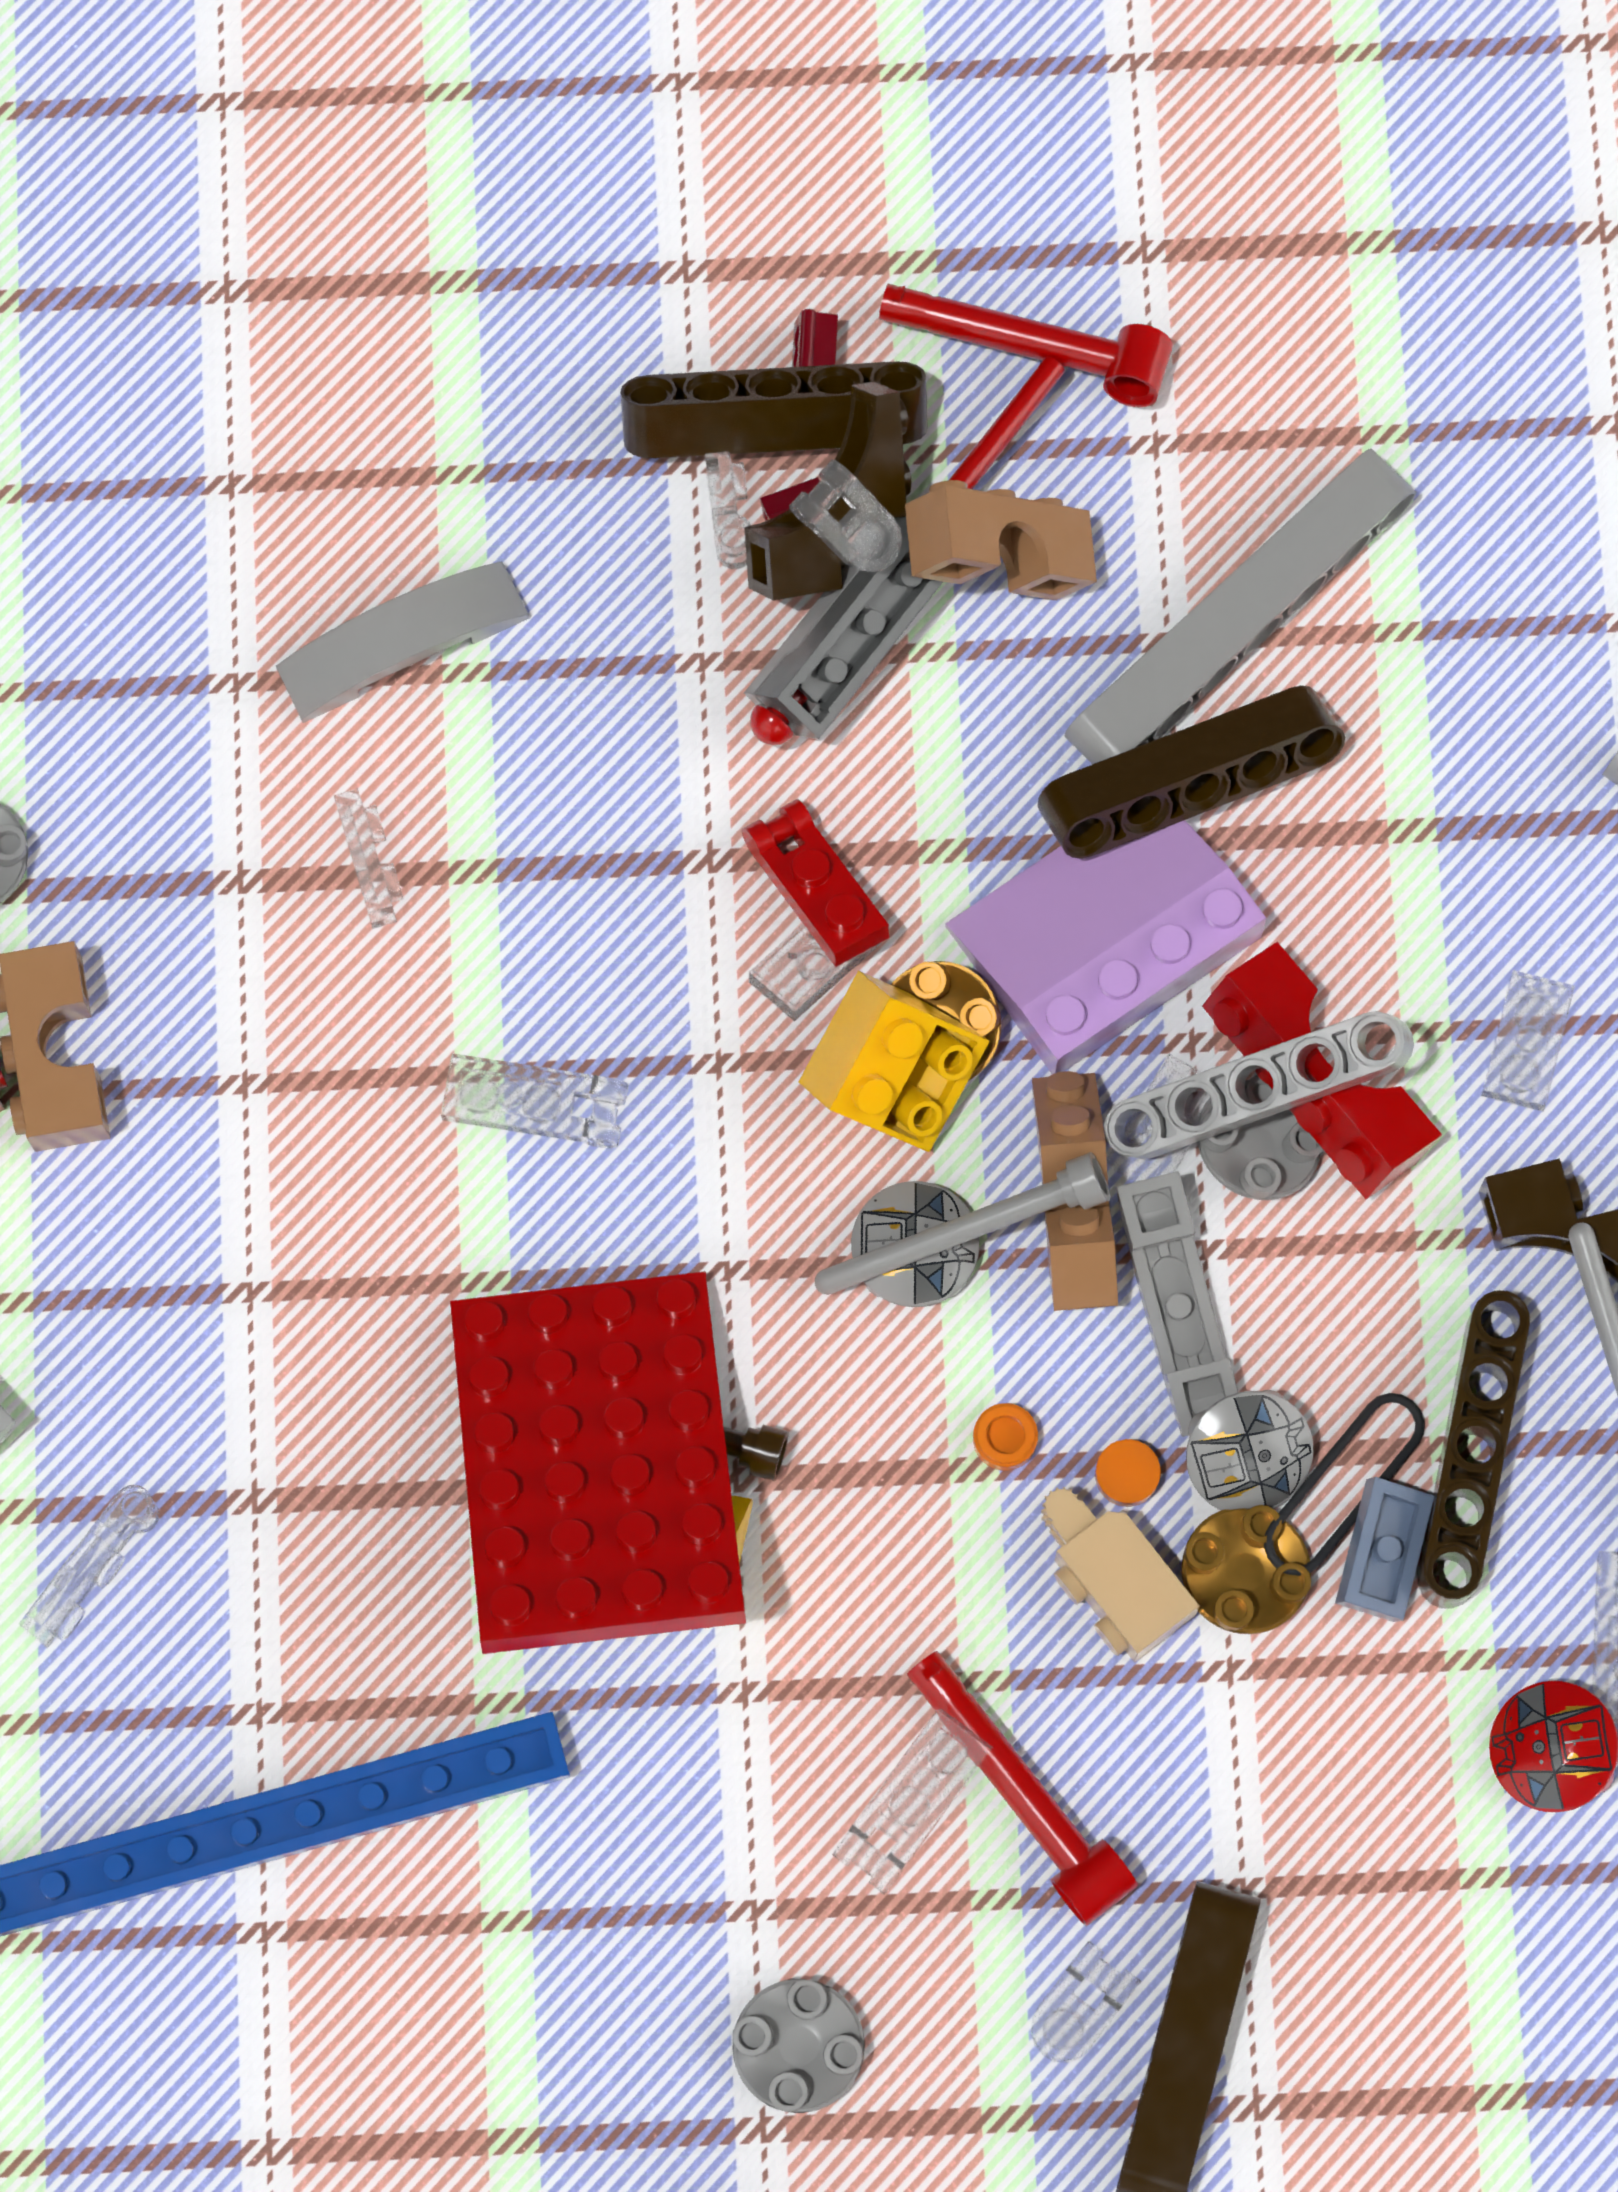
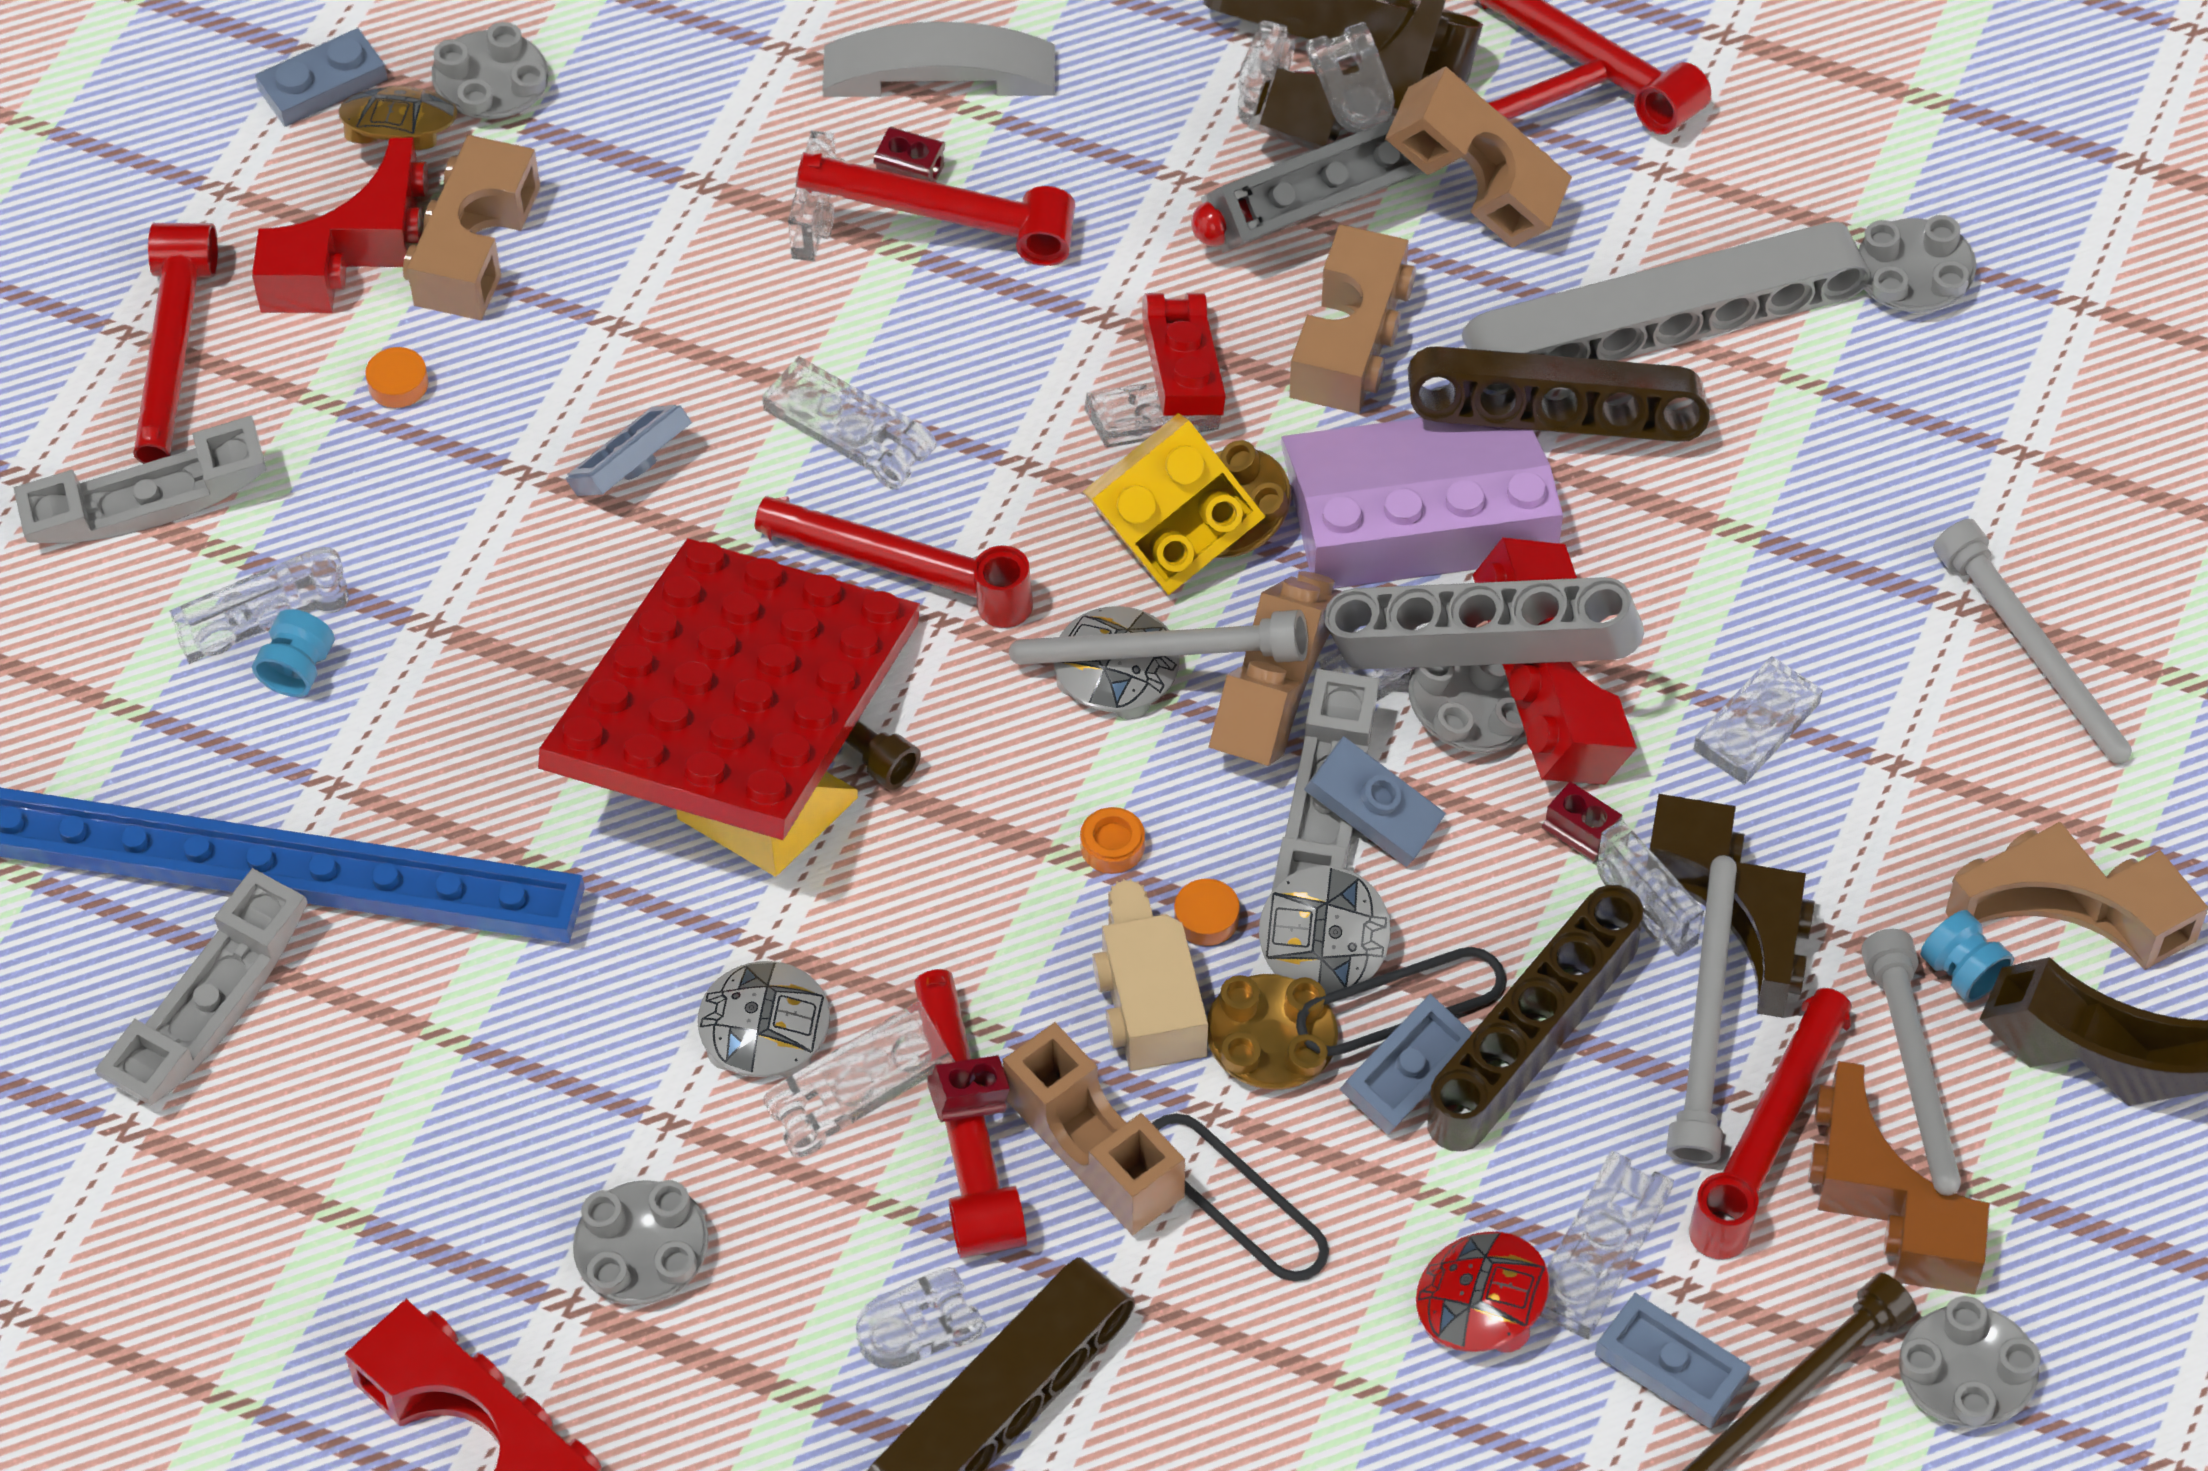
camera: 25 degrees right, 20 degrees down
(69, 1246) = (396, 377): none -> orange tile
(150, 1602) = (291, 657): none -> dark azure wheel
(273, 1991) = (211, 994): none -> light grey slope
(344, 1232) = (629, 451): none -> sand blue plate
(430, 753) = (910, 155): none -> dark red piece
(599, 788) = (1039, 222): none -> red piece
(658, 1228) = (995, 578): none -> red piece
(788, 1772) = (763, 1019): none -> light grey dish
(946, 712) = (1340, 357): none -> medium nougat arch
(1013, 1796) = (968, 1088): none -> dark red piece
(1146, 1757) = (1120, 1162): none -> medium nougat arch
(1228, 1293) = (1375, 801): none -> sand blue plate
(1282, 1771) = (1266, 1188): none -> black piece
(1414, 1234) = (1579, 820): none -> dark red piece
(1450, 453) = (1917, 263): none -> light grey dish
(1489, 1258) = (1667, 907): none -> clear plate

